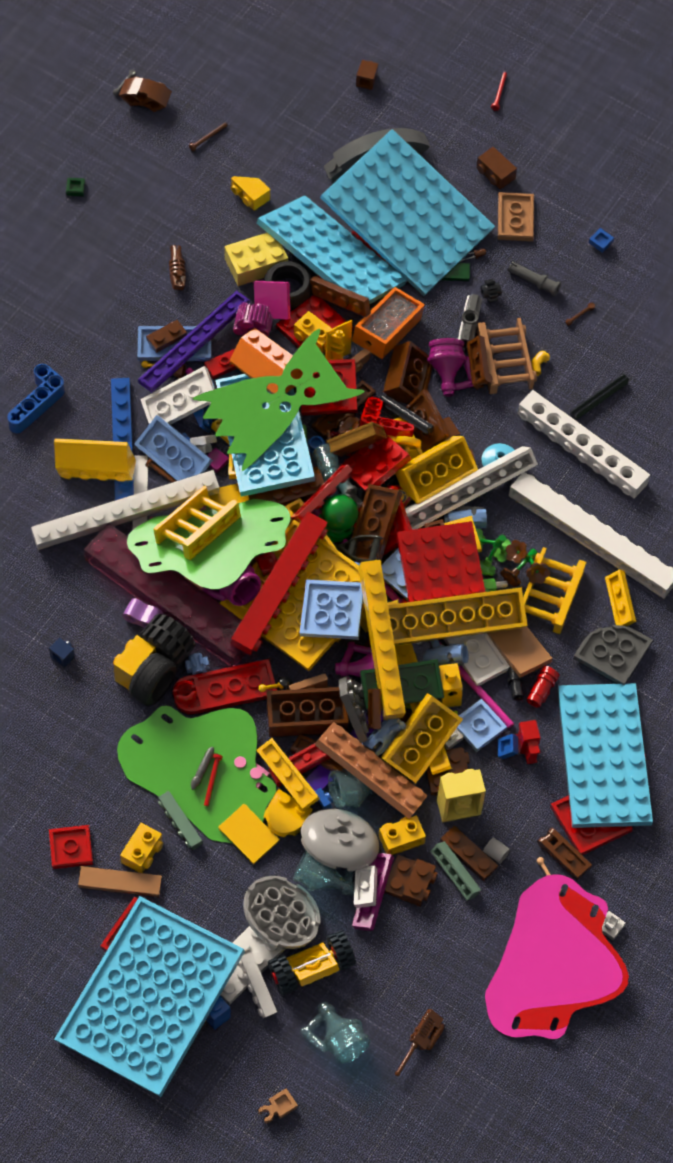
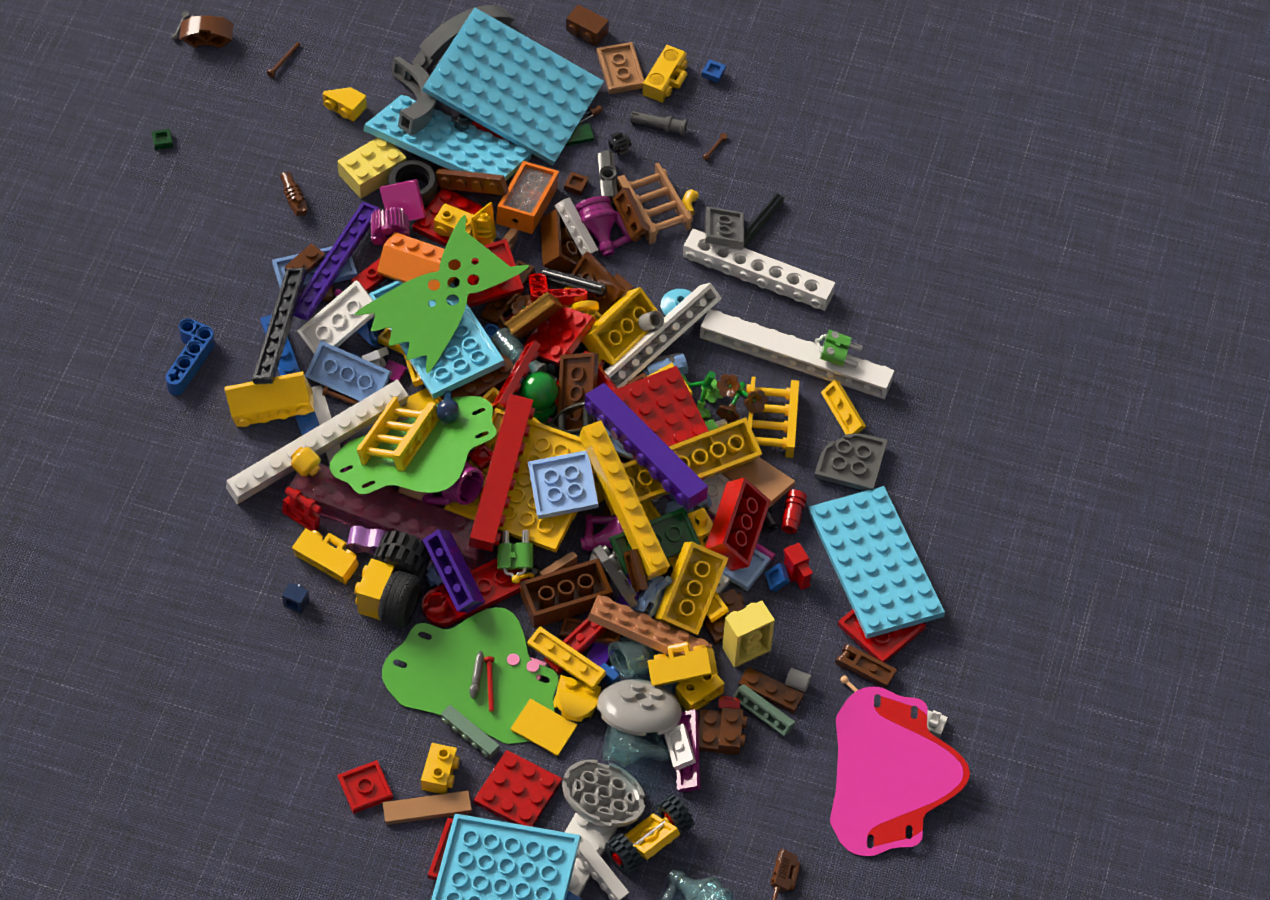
camera: 15 degrees left, 5 degrees down
(92, 571) = (301, 509): none -> red plate
(94, 614) = (330, 560): none -> yellow piece
(106, 528) = (305, 461): none -> yellow head
(121, 392) = (279, 326): none -> black tile
(206, 887) = (517, 790): none -> red plate
(208, 665) = (453, 571): none -> dark purple brick
(248, 510) = (447, 409): none -> dark blue piece
(270, 664) = (515, 555): none -> bright green piece
(314, 218) = (421, 112): none -> dark grey arch
(349, 235) = (461, 122): none -> black plate
(383, 812) = (675, 669): none -> yellow piece
(417, 594) = (646, 447): none -> dark purple brick
(424, 362) = (575, 226): none -> white piece
(425, 855) = (729, 702): none -> red tile
(439, 319) = (576, 183): none -> reddish brown tile
(470, 470) = (654, 316): none -> light grey beam
(484, 687) = (738, 523): none -> red brick
(549, 235) = (661, 77): none -> yellow piece
(562, 396) = (724, 227): none -> dark grey tile
(630, 539) = (836, 348): none -> bright green piece

